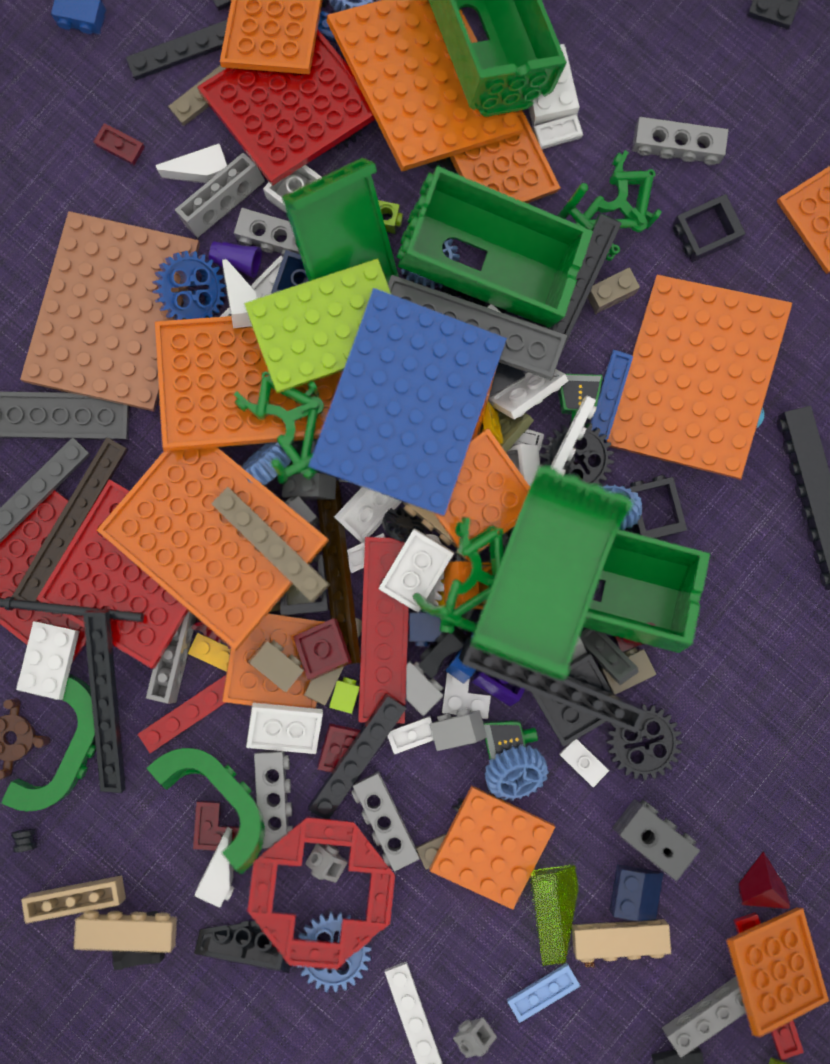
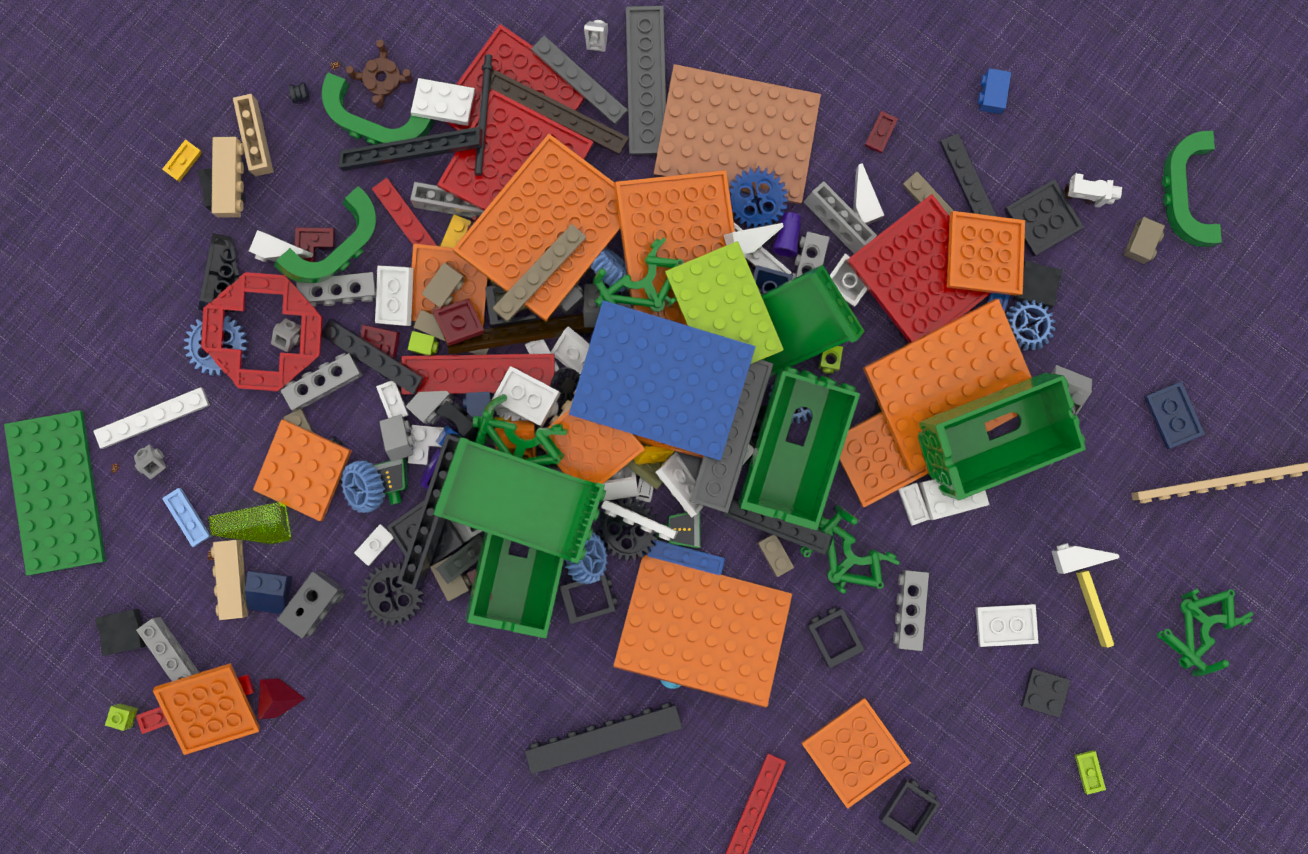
camera: 85 degrees right, 0 degrees up
(100, 990) = (182, 160): none -> yellow plate
(699, 37) = (1007, 625): none -> white plate

